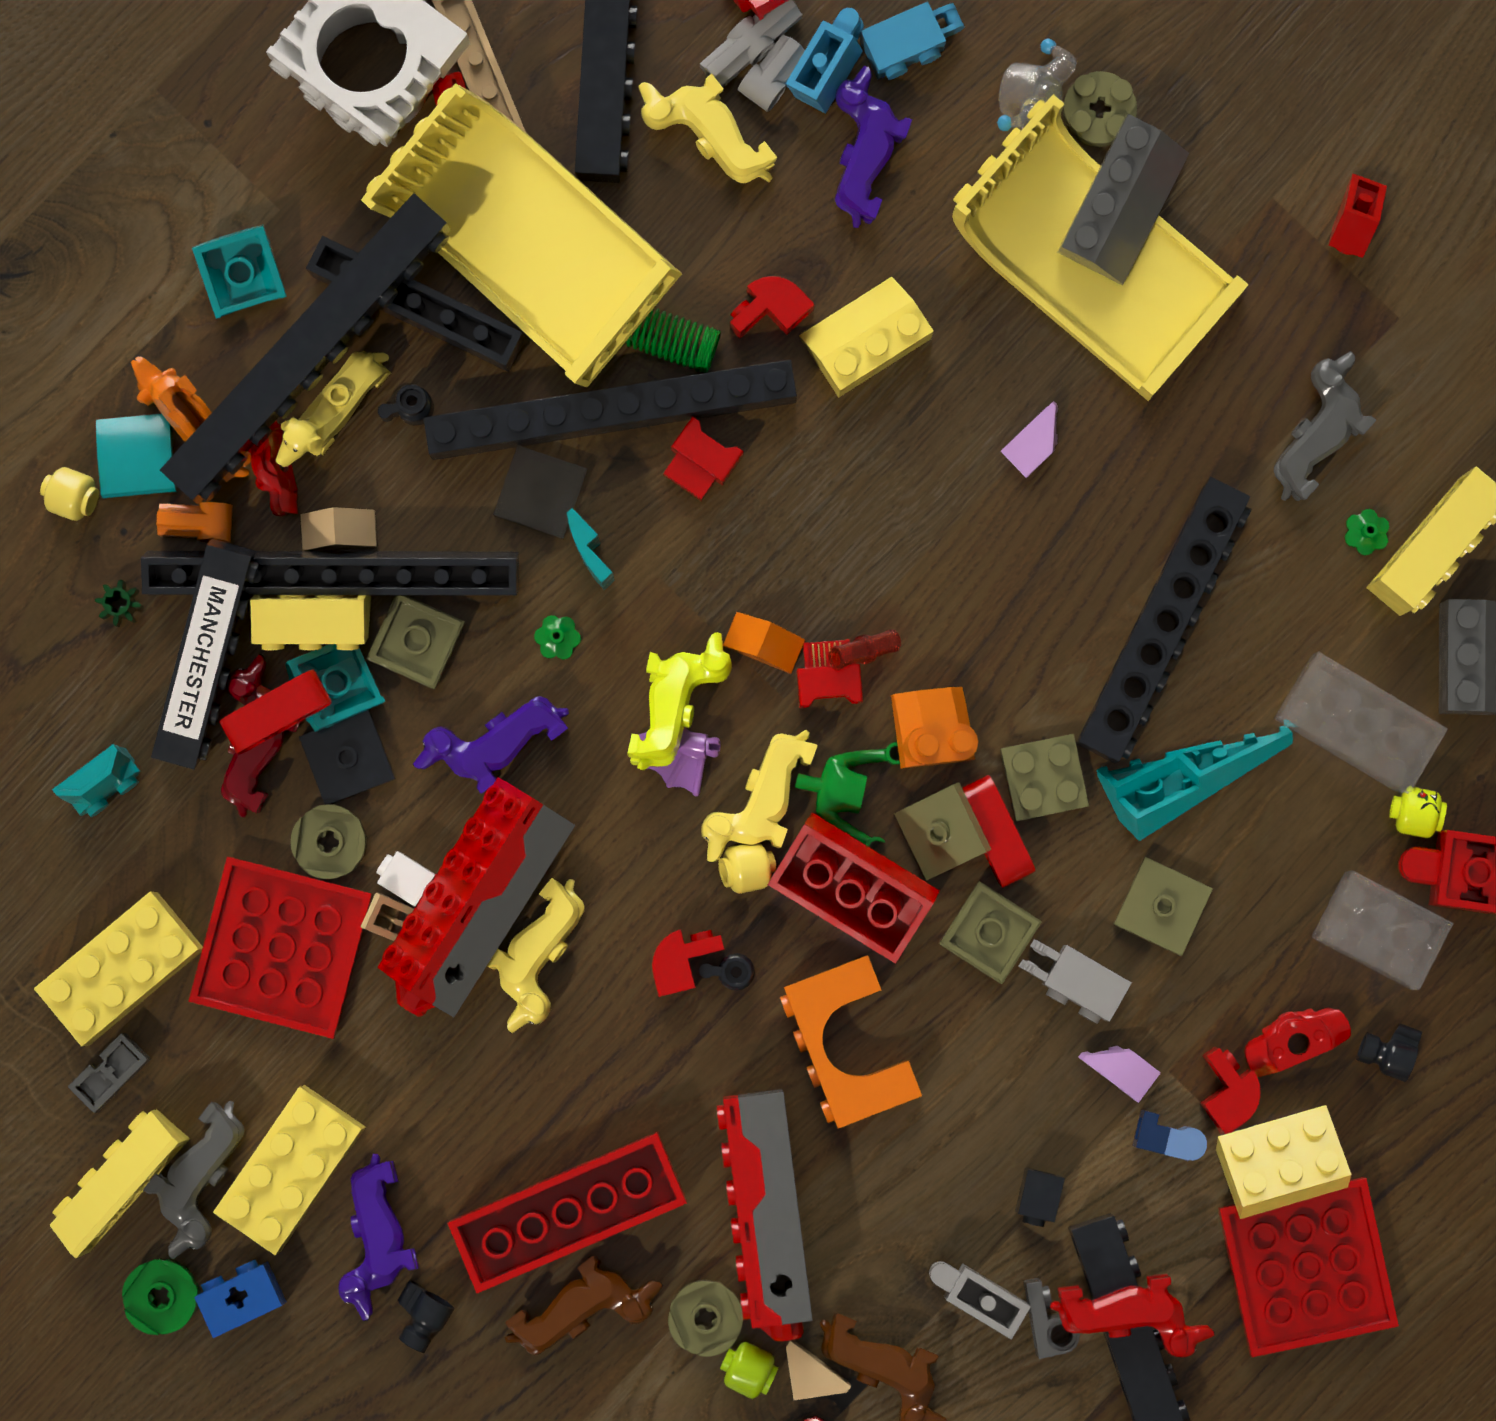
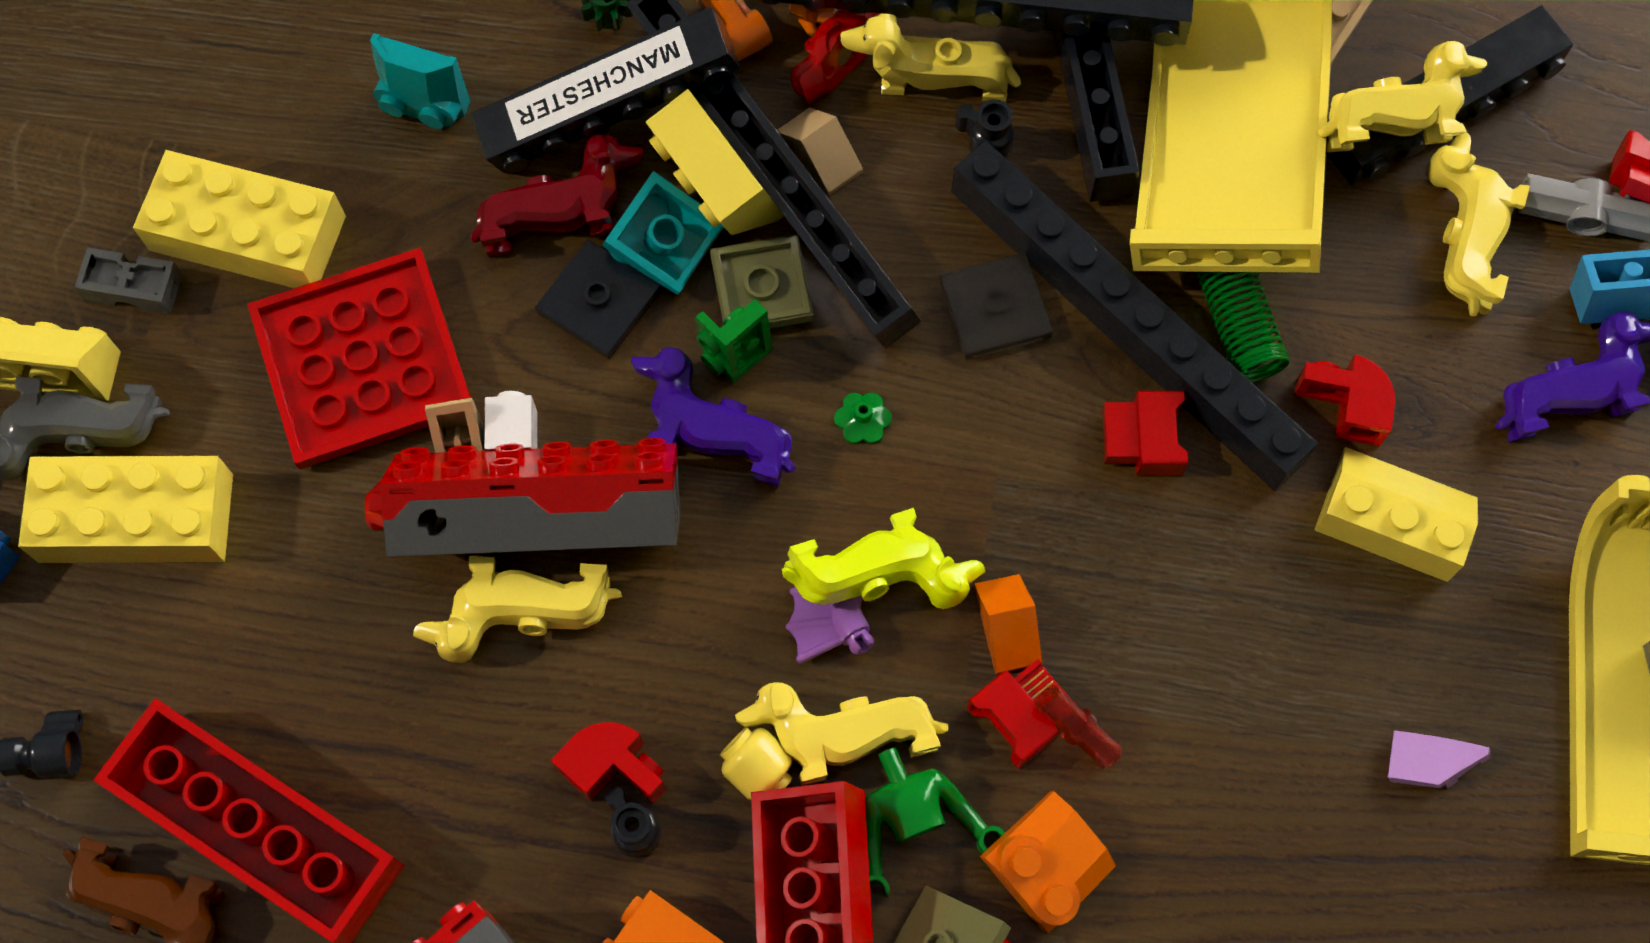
camera: 60 degrees right, 15 degrees down
(275, 712) = (593, 186): red beam -> none
(312, 855) = (497, 358): olive plate -> none
(380, 1234) = (108, 646): dark purple animal -> none
(455, 685) = (738, 343): none -> green bracket
(586, 541) = (973, 376): teal slope -> none
(607, 117) = (1406, 108): none -> light yellow animal
(767, 81) = (1560, 245): light grey piece -> none

